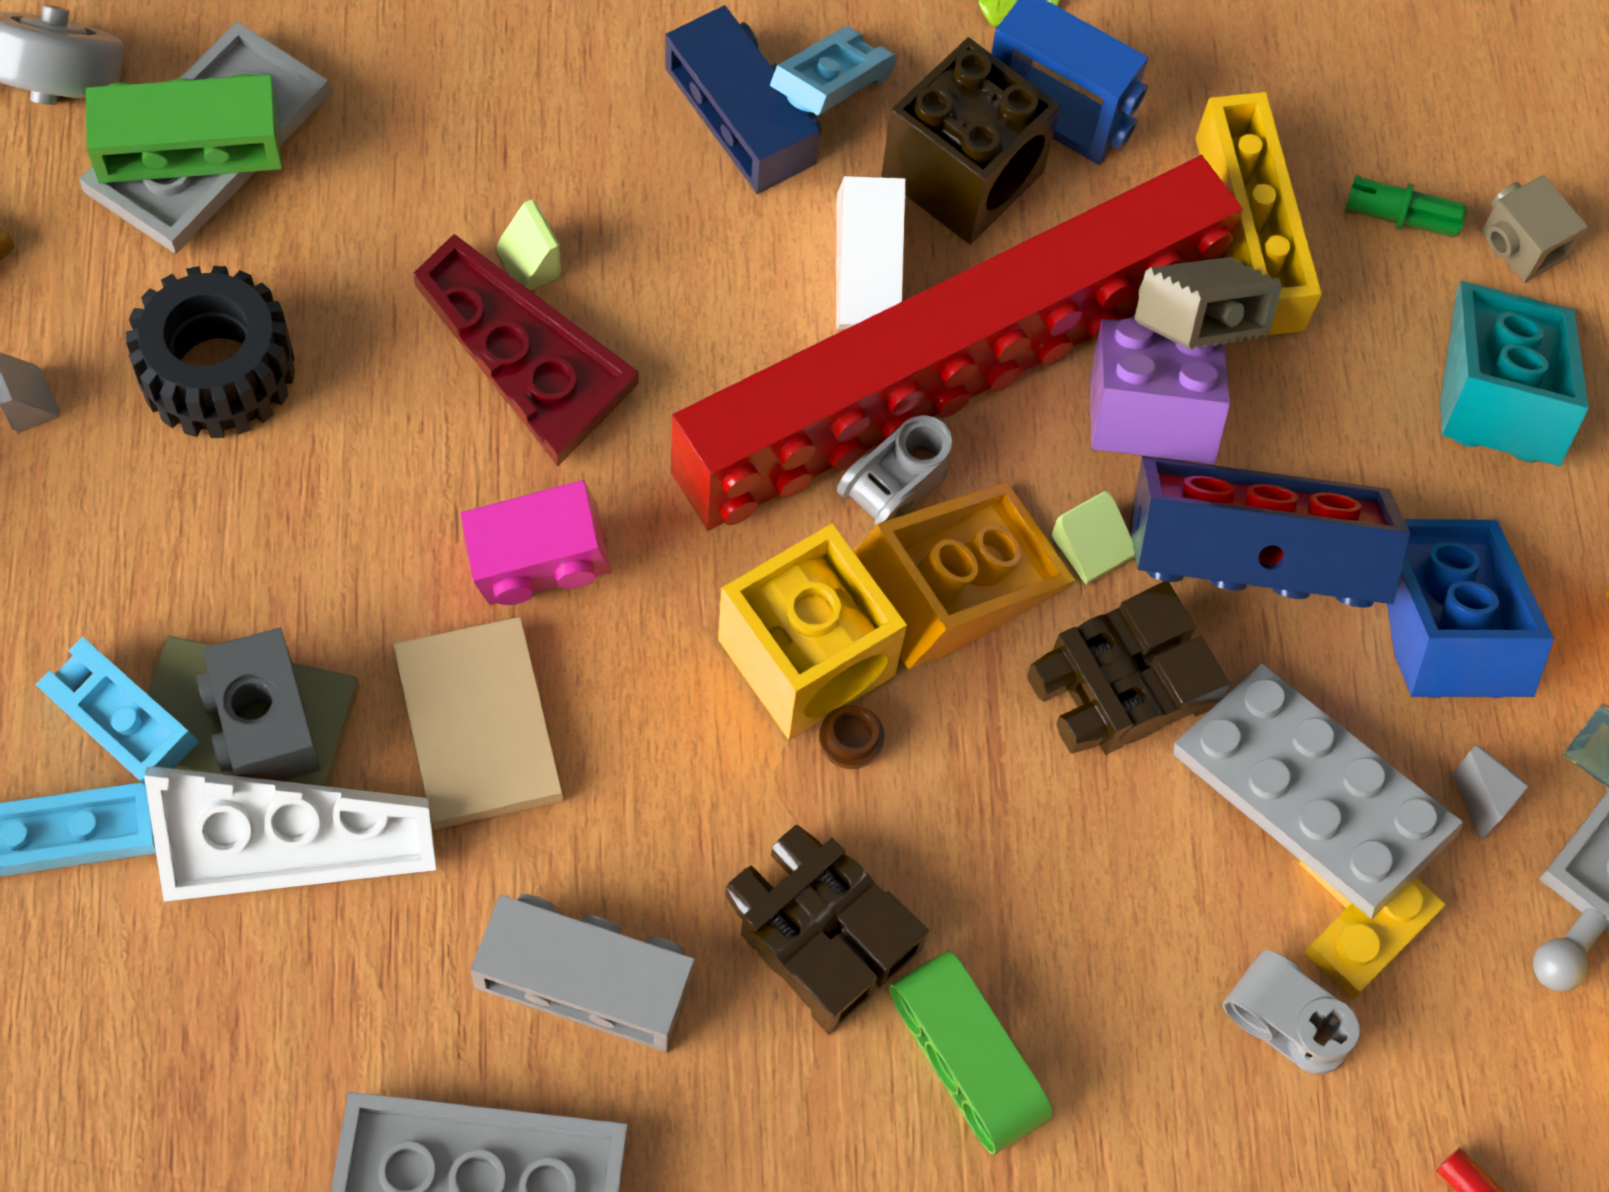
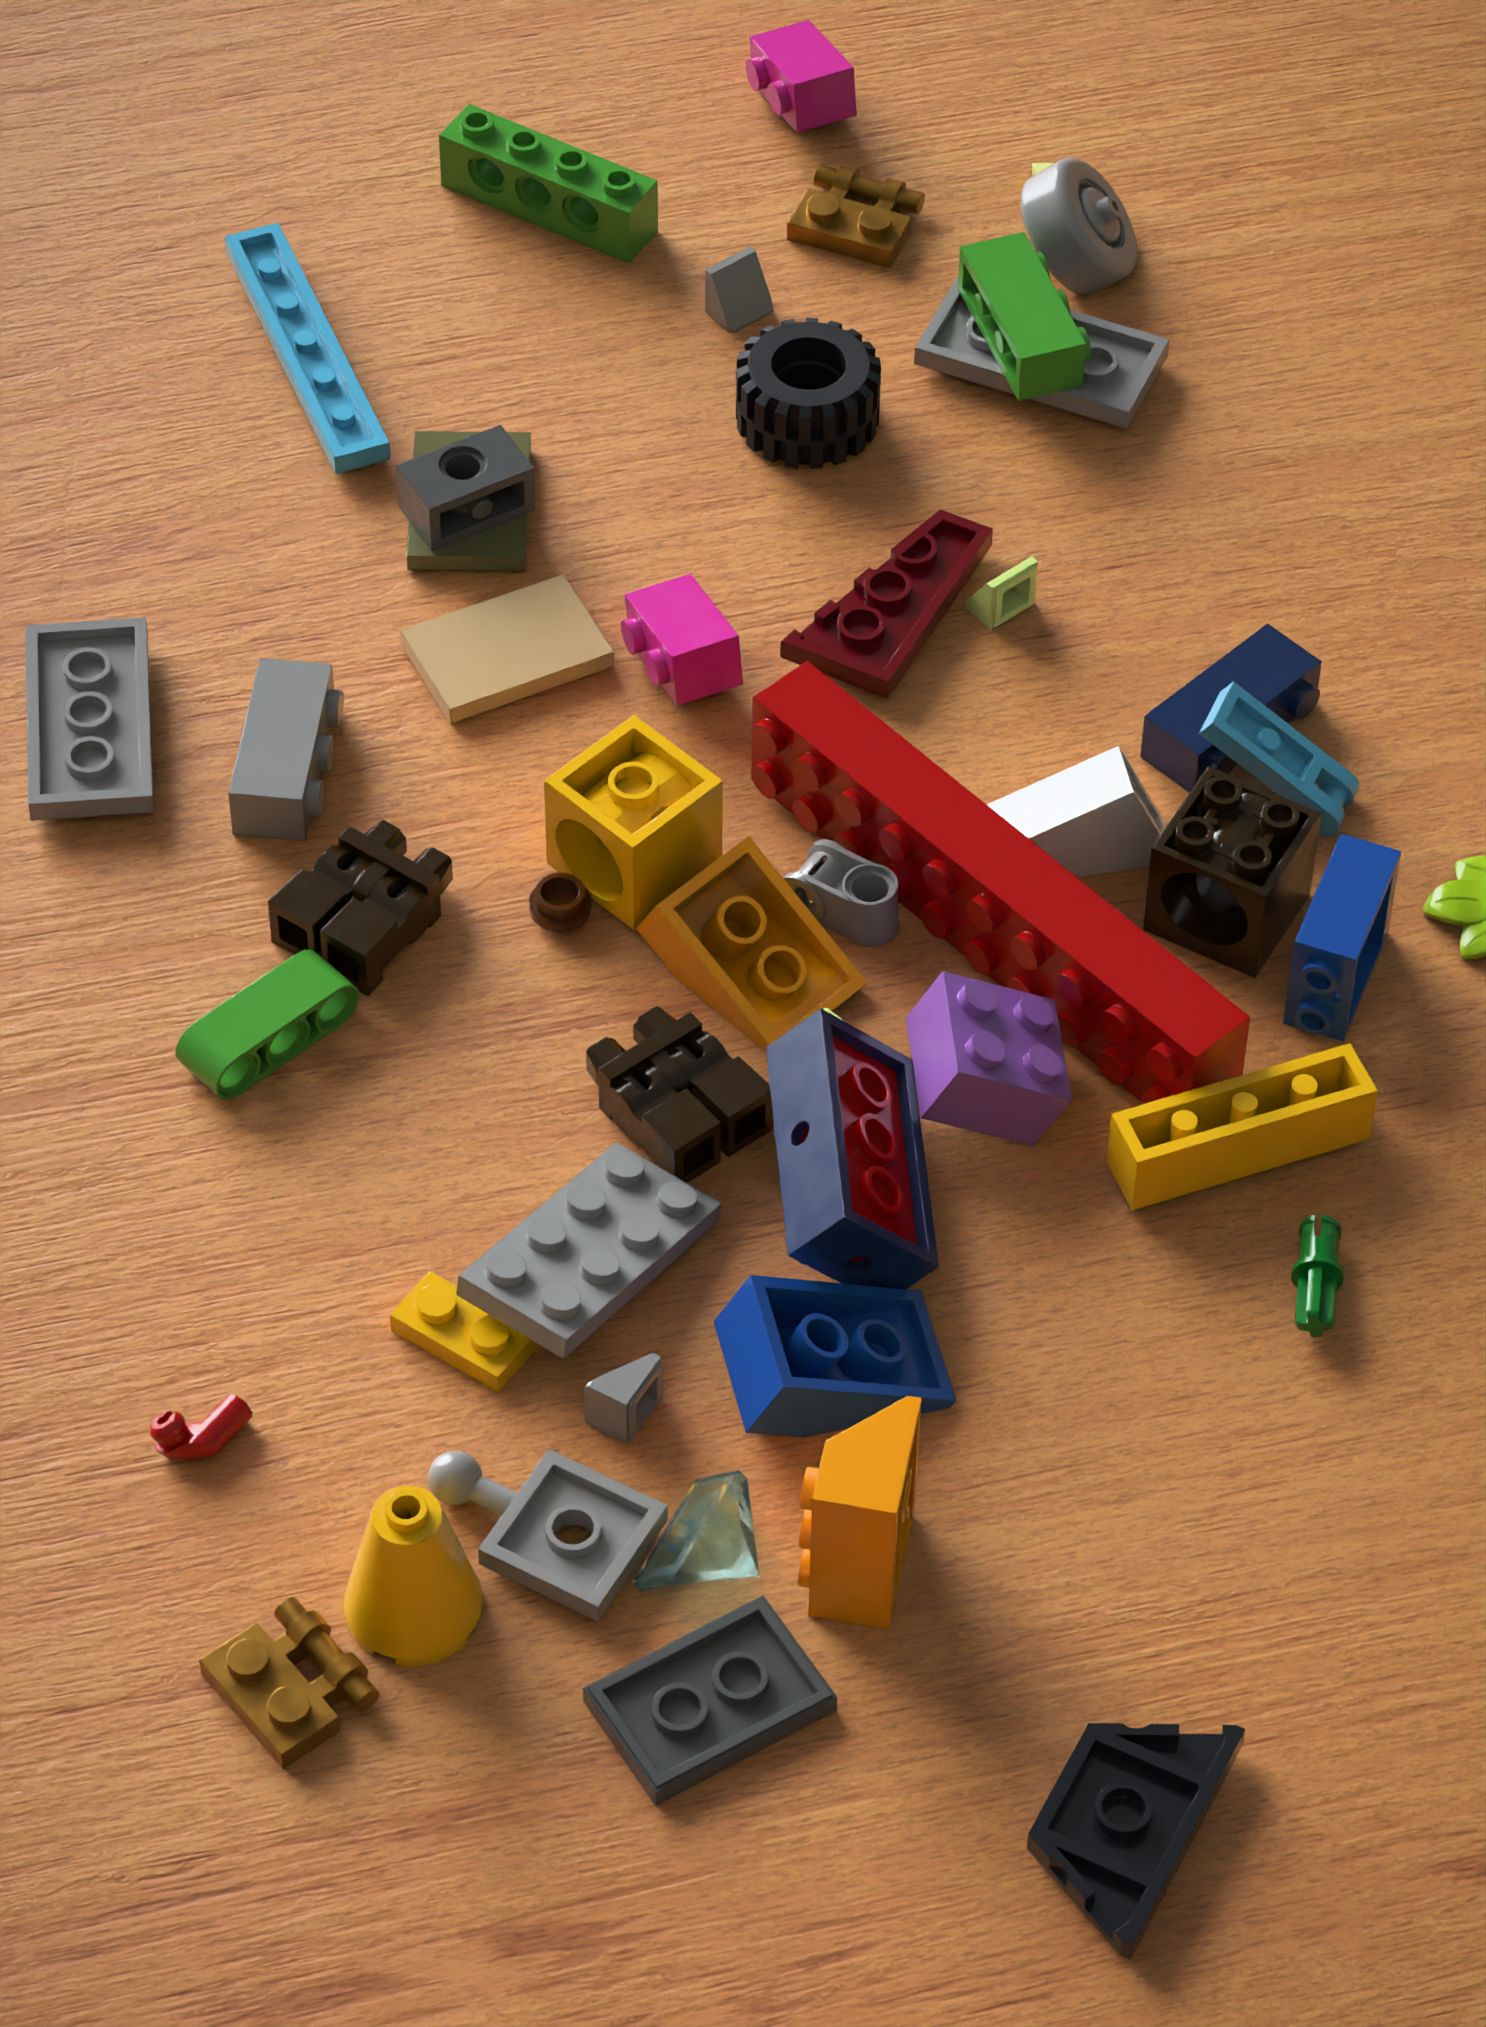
camera: 85 degrees right, 15 degrees down
(117, 712) = (443, 408): medium azure plate -> none
(266, 834) = (359, 529): white wing -> none
(1207, 302) = (1081, 1054): dark tan brick -> none
(1288, 1009) = (354, 1262): light grey piece -> none
(1512, 375) = (1134, 1382): teal slope -> none
(1533, 227) = (1329, 1390): dark tan brick -> none

